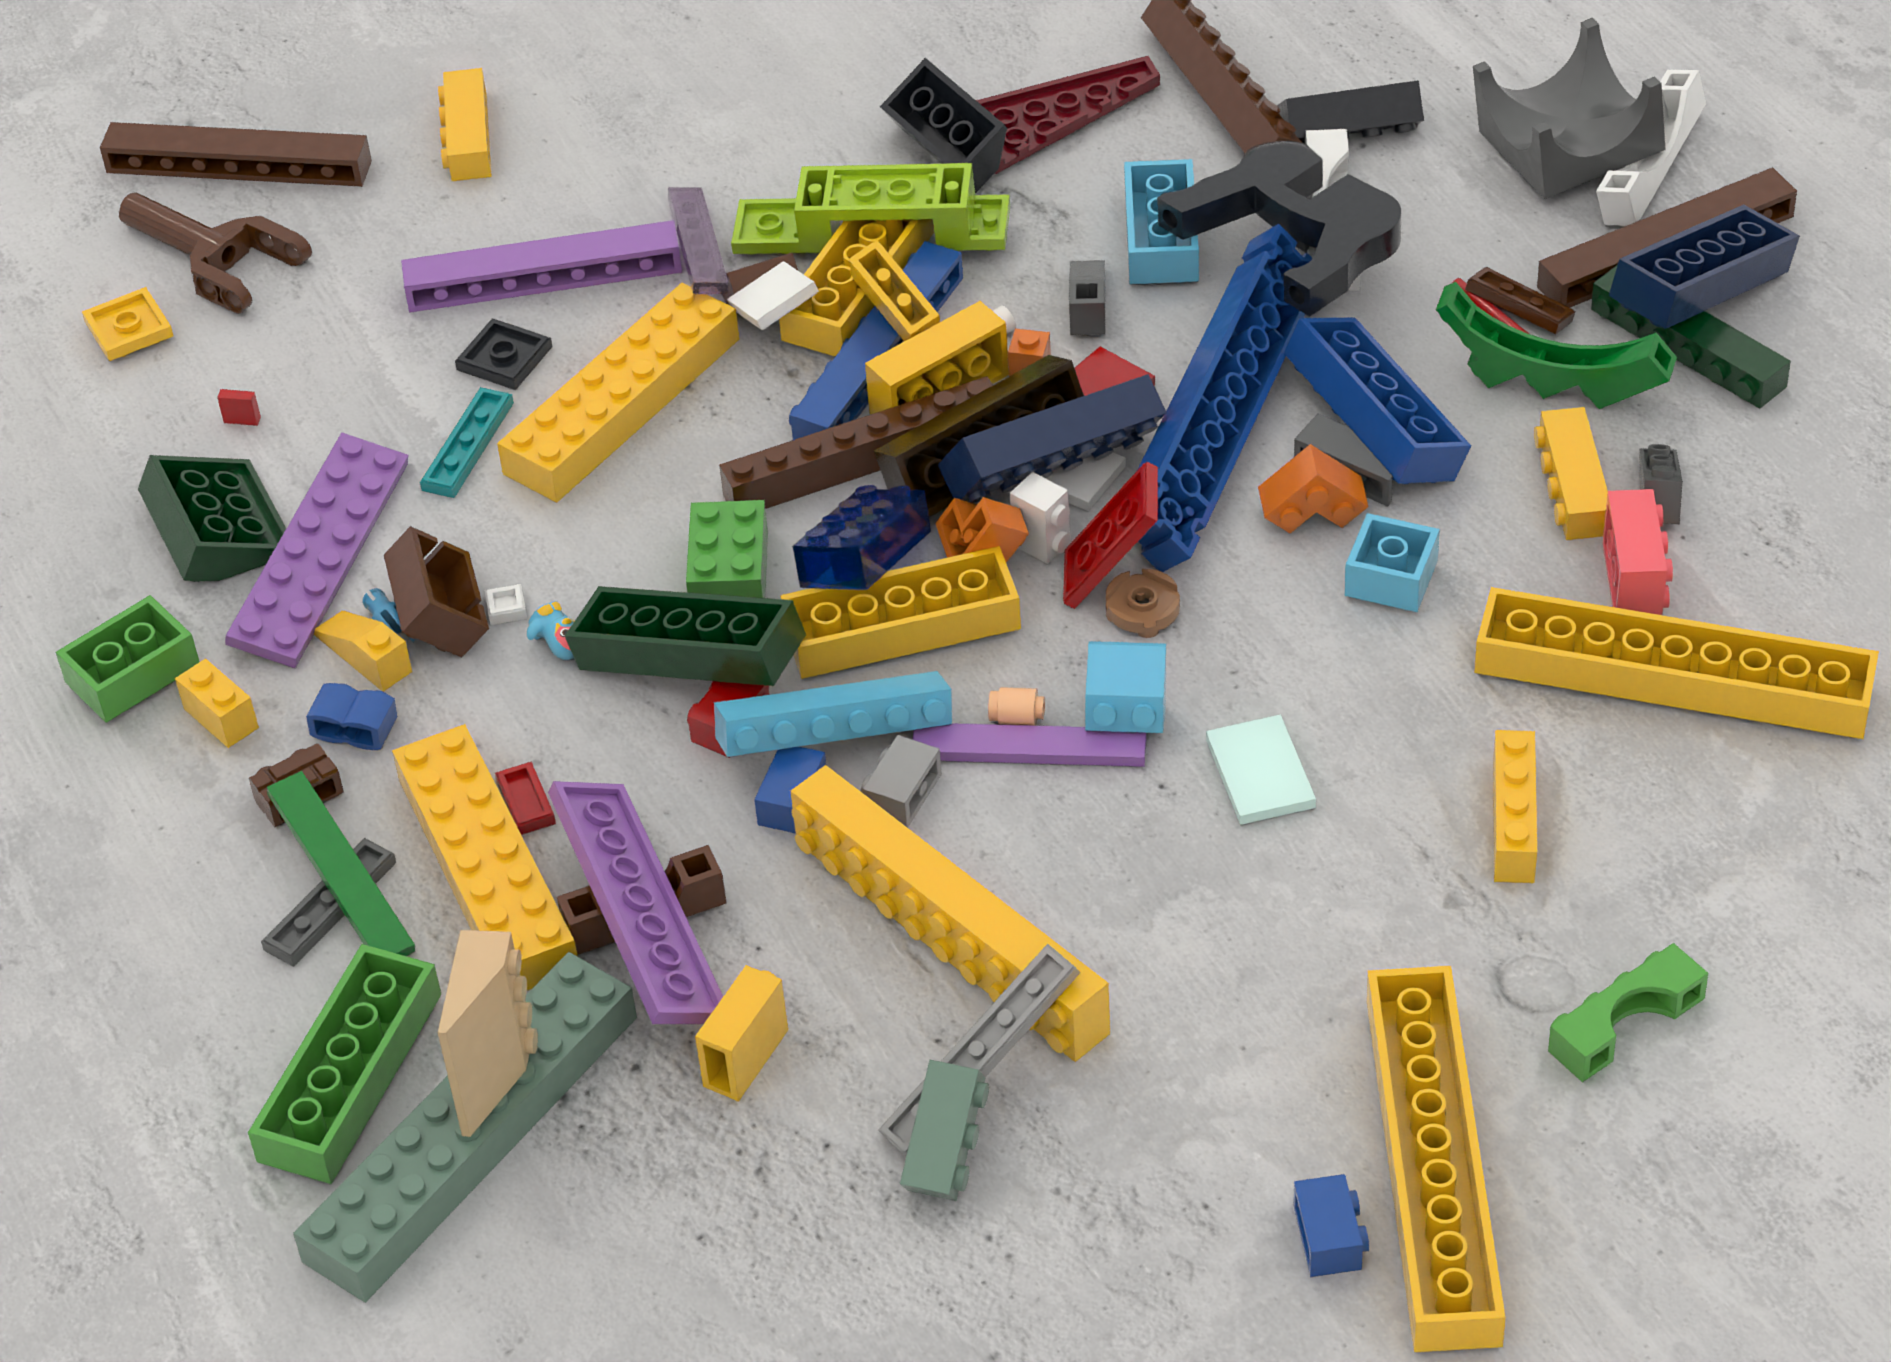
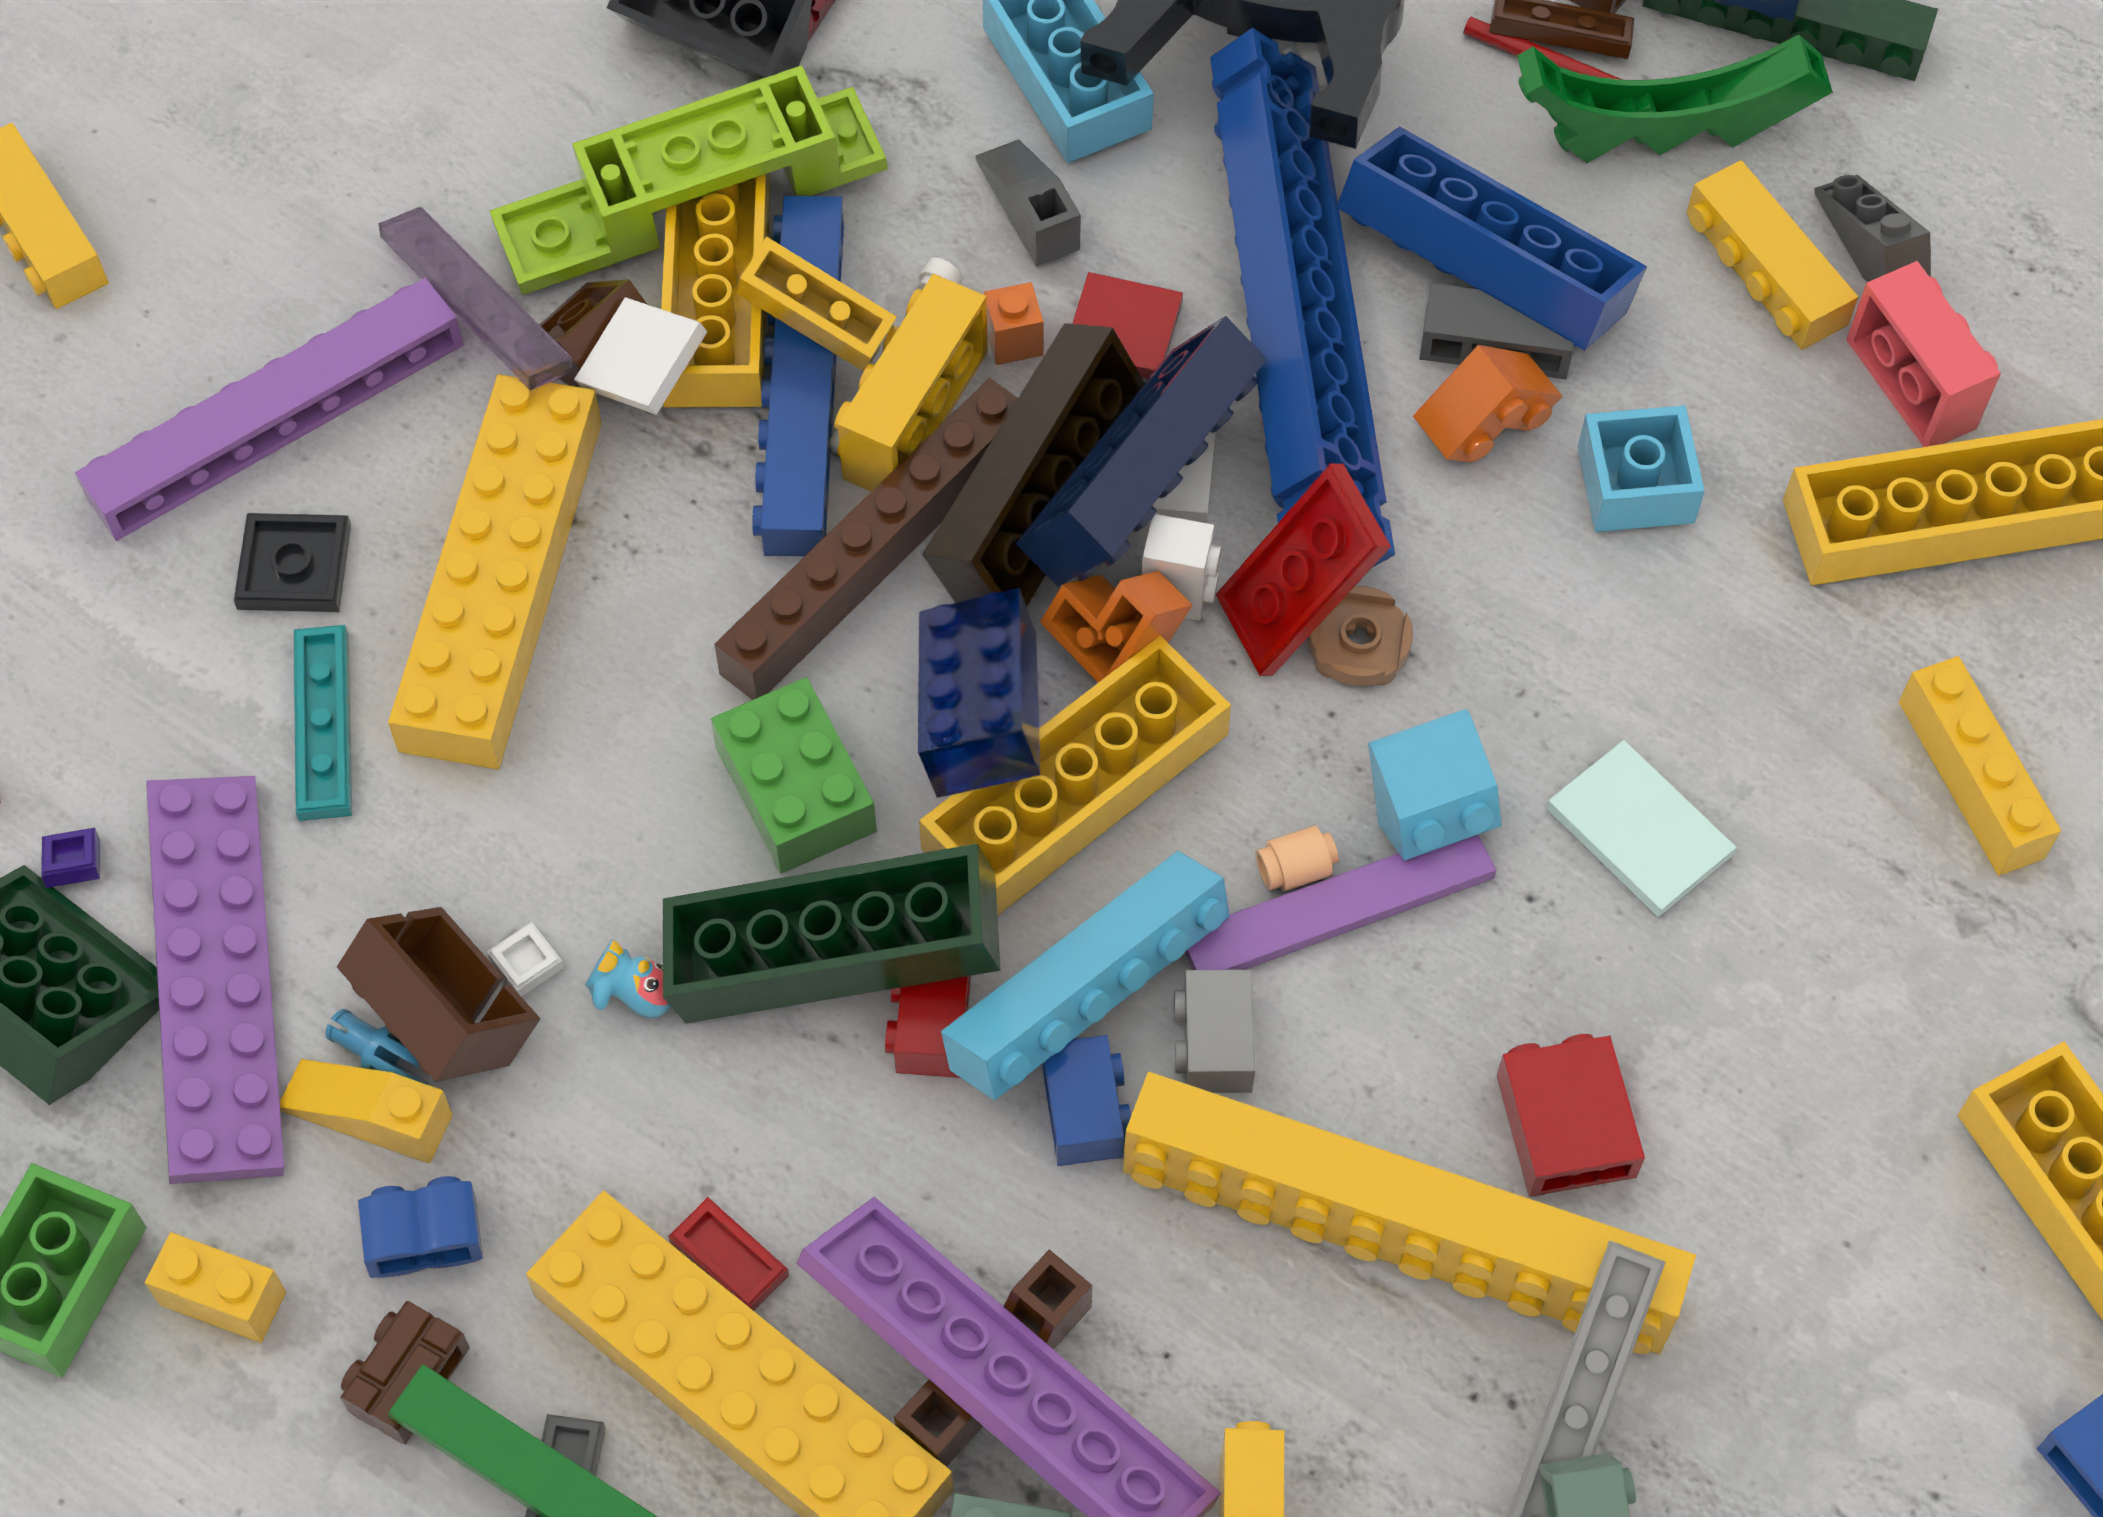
camera: 30 degrees left, 15 degrees up
(277, 463) = (70, 857): none -> dark purple tile
(1099, 904) = (1569, 1114): none -> red brick

